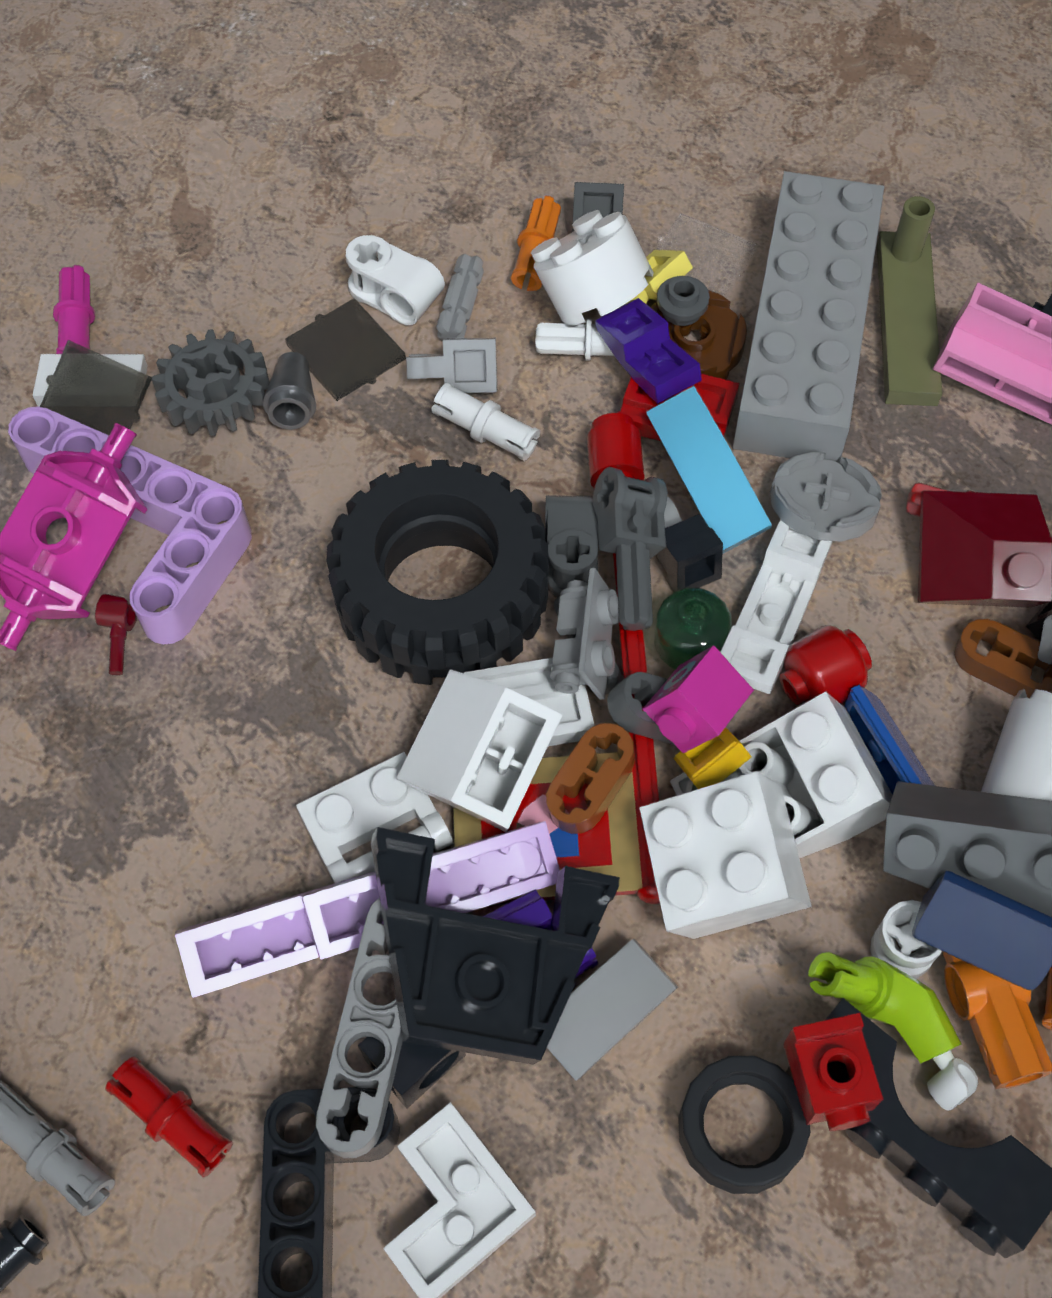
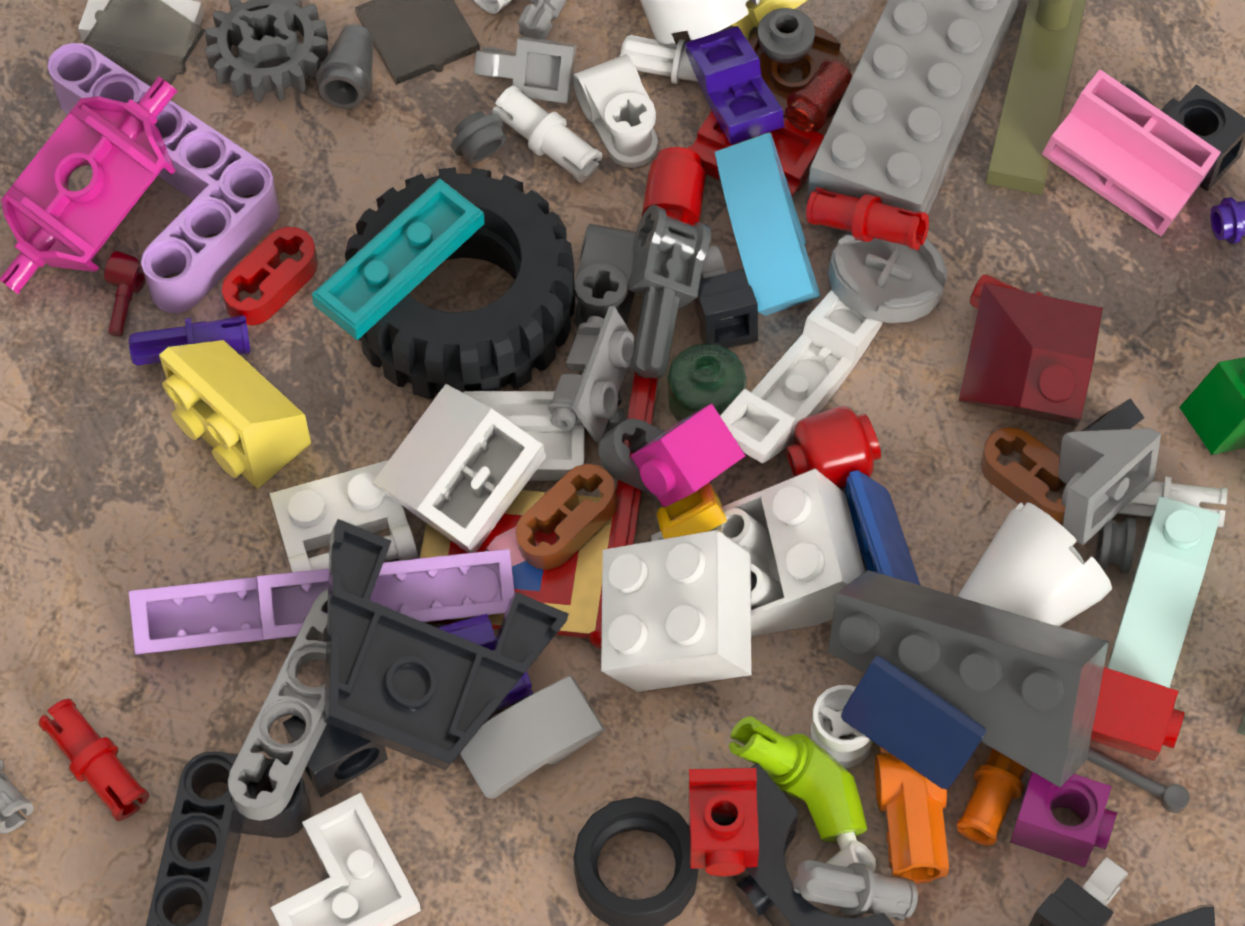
camera: 10 degrees right, 0 degrees up
(190, 669) = (147, 345): none -> dark purple axle
(245, 729) = (233, 410): none -> light yellow slope
(250, 591) = (274, 279): none -> red beam
(380, 557) = (398, 259): none -> teal tile
(423, 434) = (478, 137): none -> dark grey plate
(546, 390) = (619, 110): none -> white piece
(722, 357) = (809, 106): none -> clear red pin
(800, 448) = (867, 218): none -> red pin
(974, 1113) = (856, 889): none -> light grey axle

